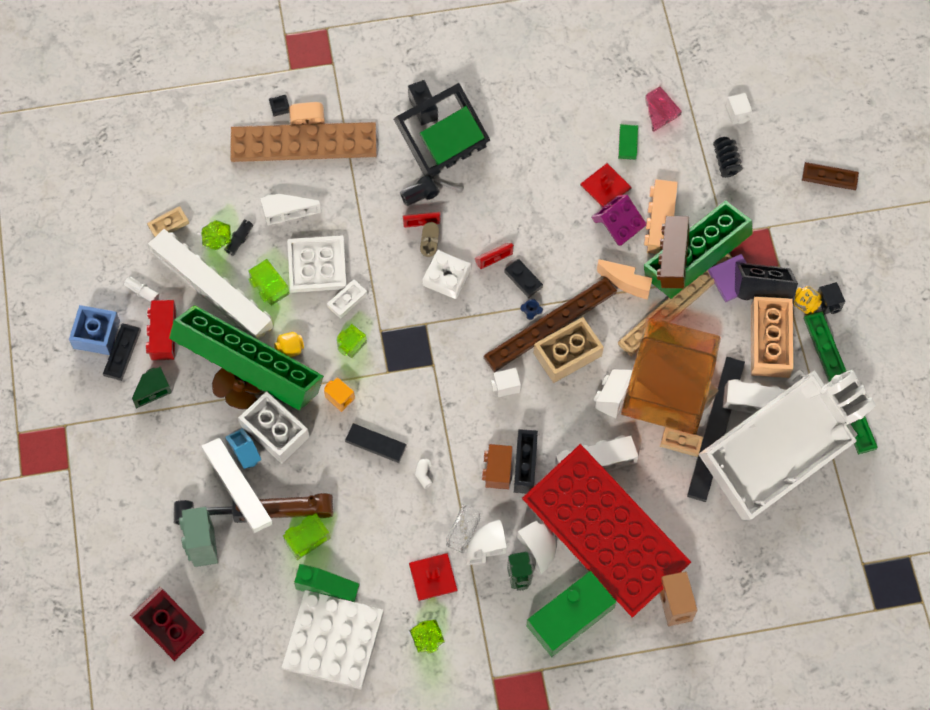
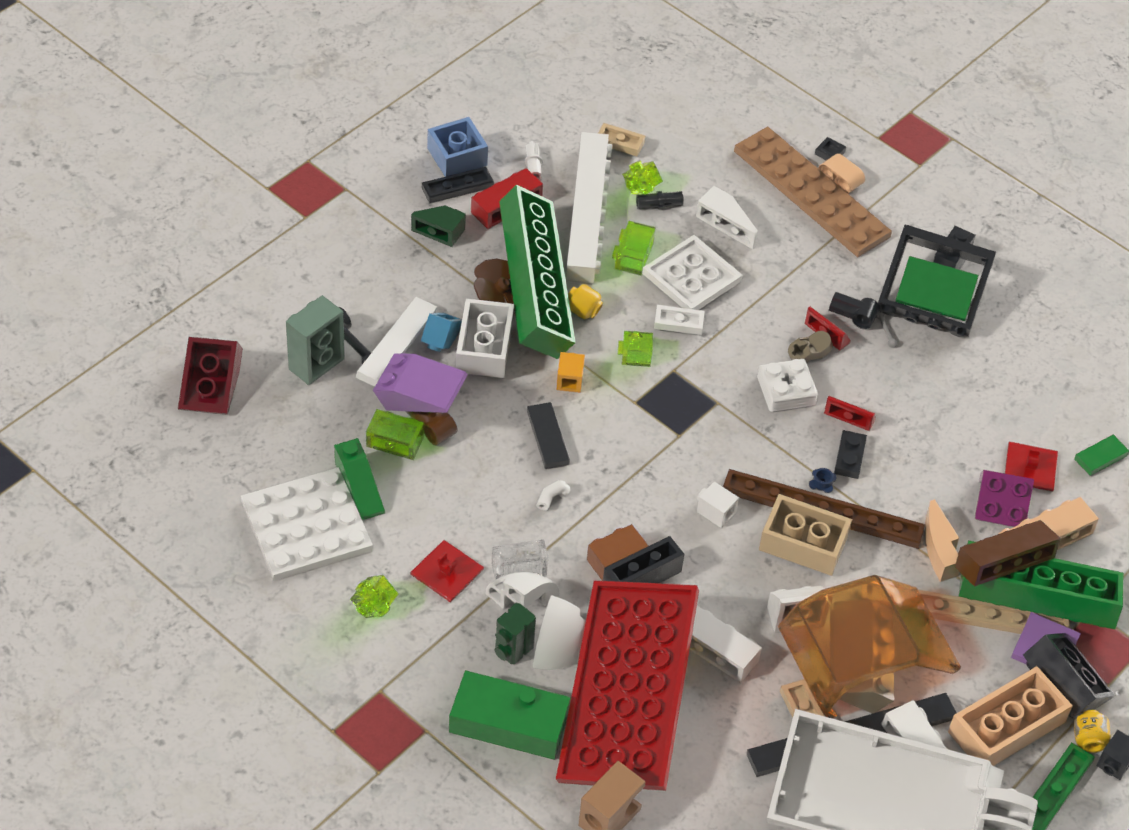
camera: 50 degrees right, 15 degrees down
(295, 497) = (418, 384): none -> medium lavender slope

